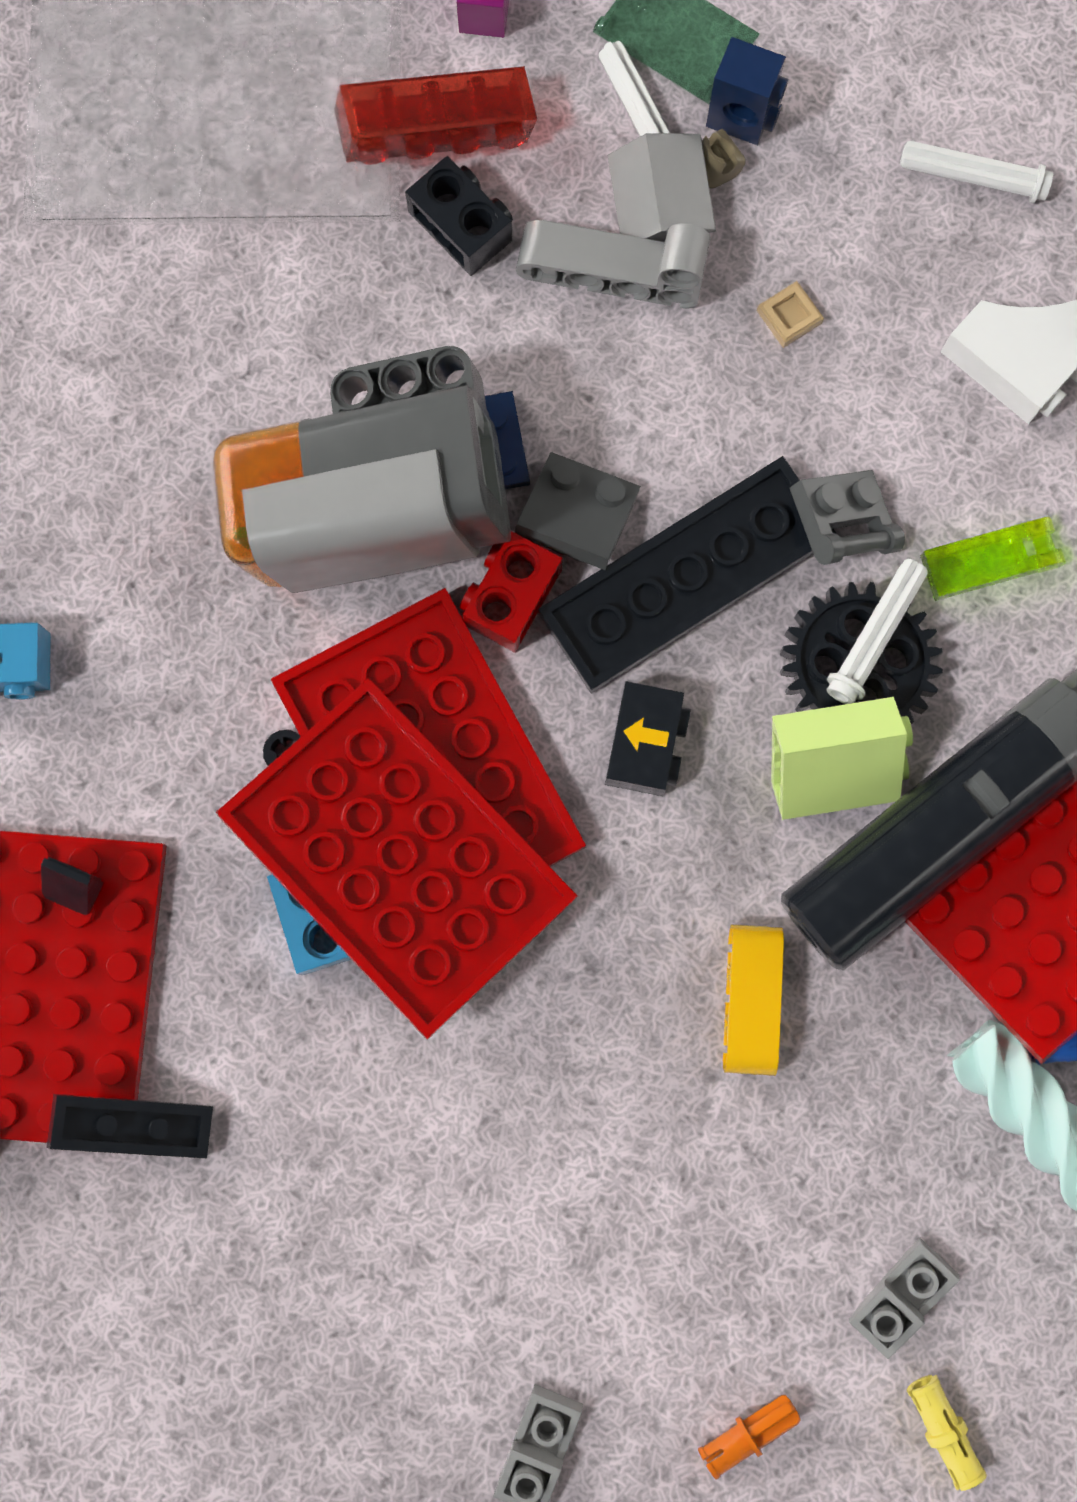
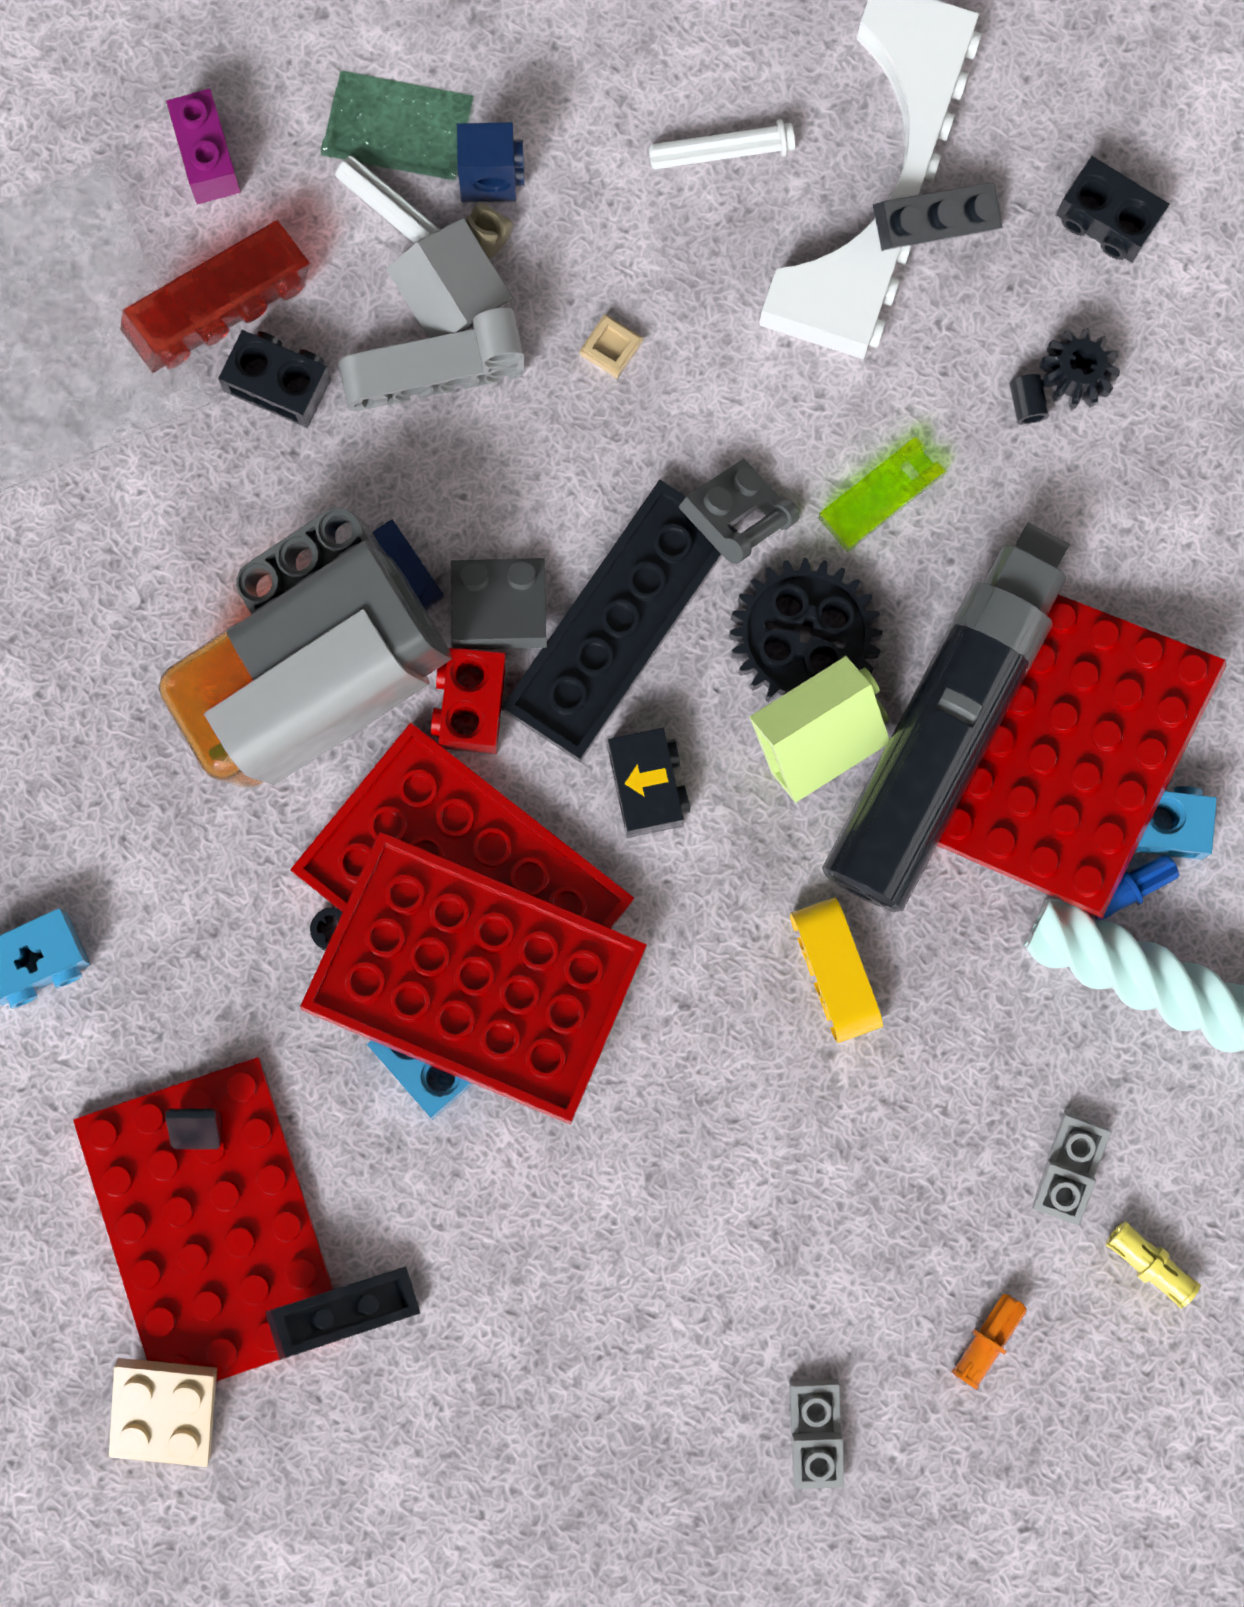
camera: 30 degrees left, 0 degrees up
(848, 682) = (808, 607): white axle -> none

